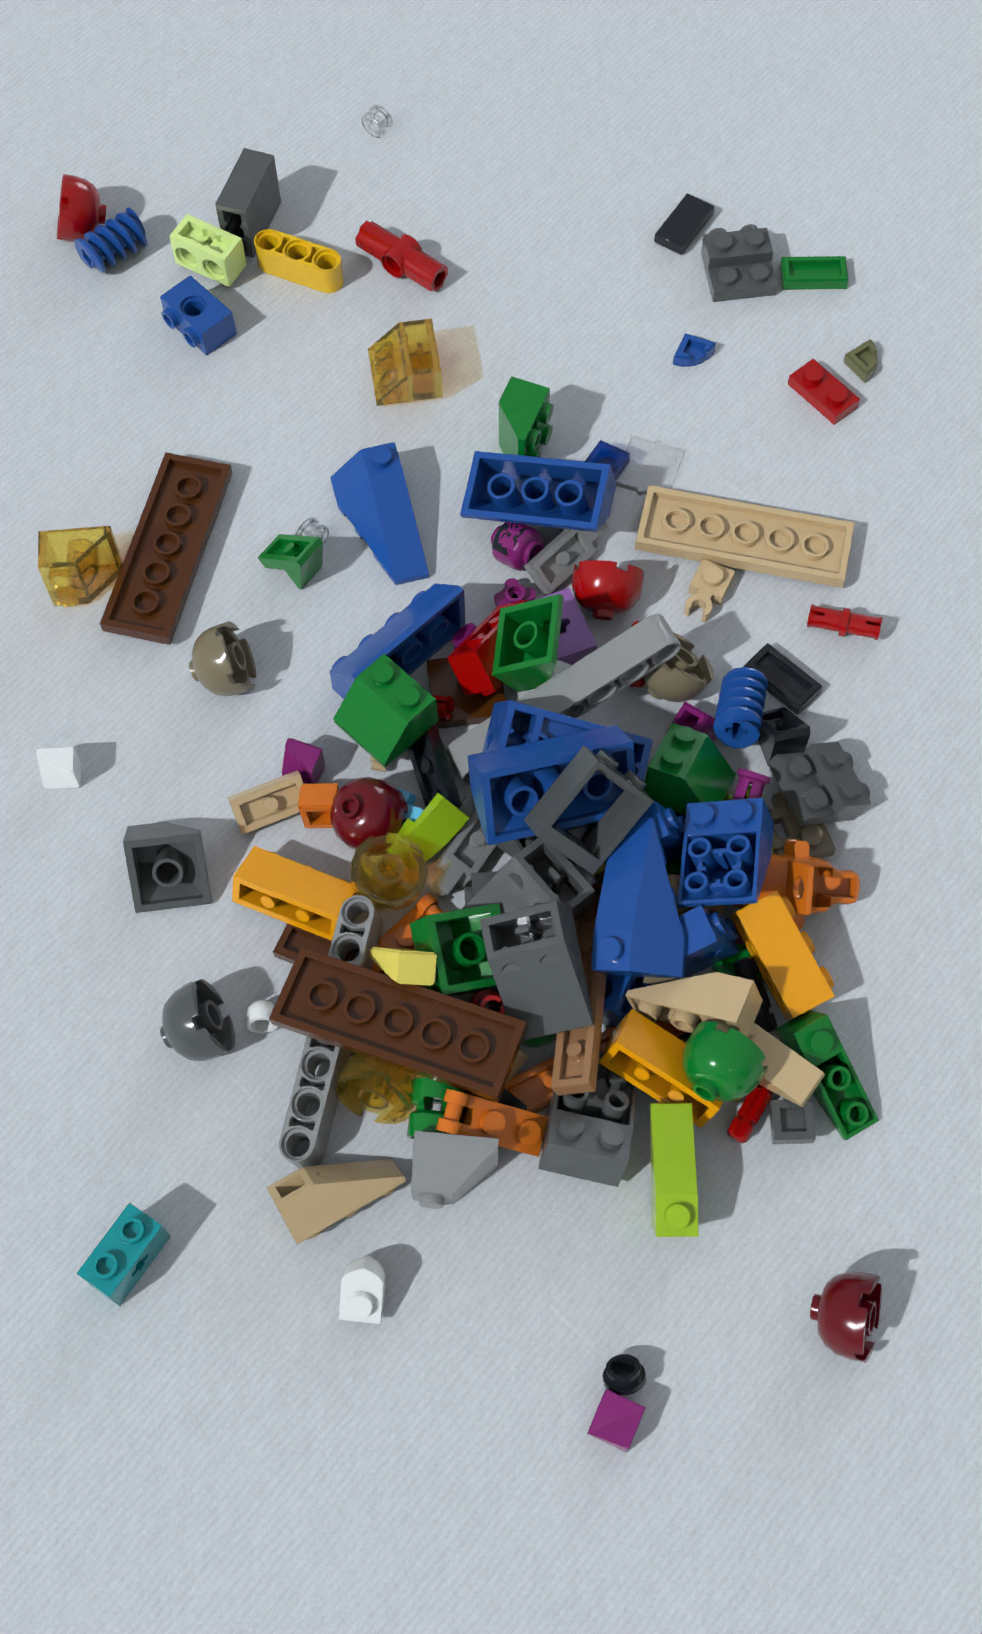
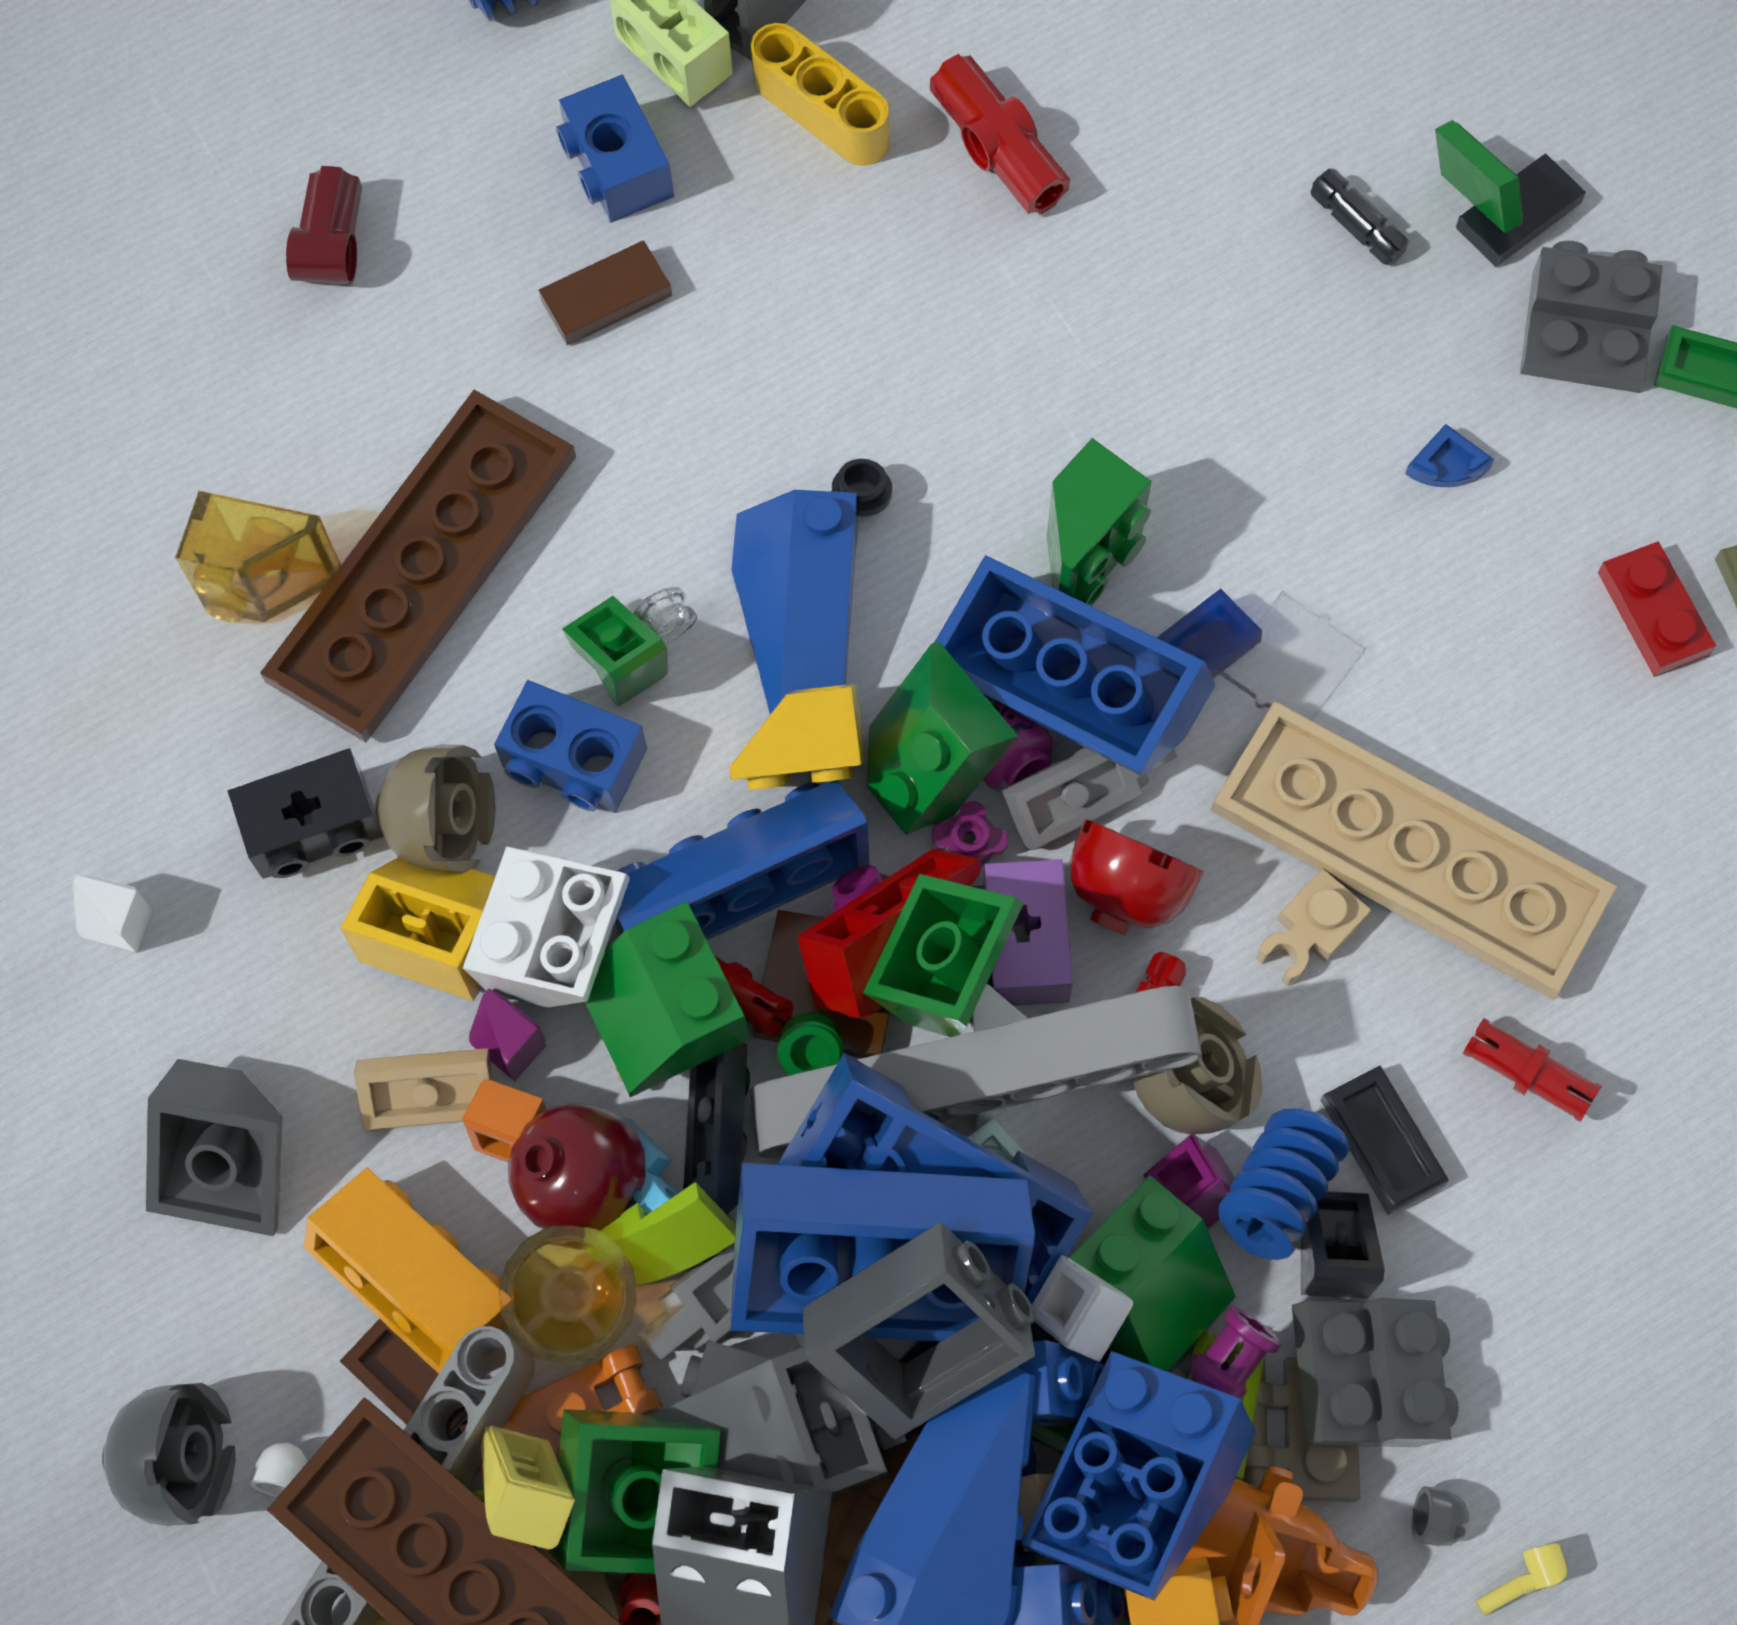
camera: 20 degrees right, 5 degrees up
(52, 401) = (325, 241): none -> dark red piece
(152, 686) = (274, 809): none -> black brick
(217, 388) = (605, 292): none -> reddish brown tile
(243, 721) = (419, 924): none -> yellow slope
(285, 604) = (579, 735): none -> blue brick
(310, 696) = (545, 928): none -> white slope
(399, 437) = (868, 481): none -> black plate
(406, 364) = (933, 345): clear yellow slope -> none
(414, 563) = (805, 732): none -> yellow slope
(467, 716) = (809, 1043): none -> green tile
(480, 550) = (933, 742): none -> green slope
(603, 248) = (1359, 216): none -> black axle
(659, 209) = (1479, 176): none -> green tile
(666, 785) = (1080, 1309): none -> white slope
(877, 845) = (1438, 1517): none -> dark grey hinge
(940, 853) = (1545, 1569): none -> light yellow hand

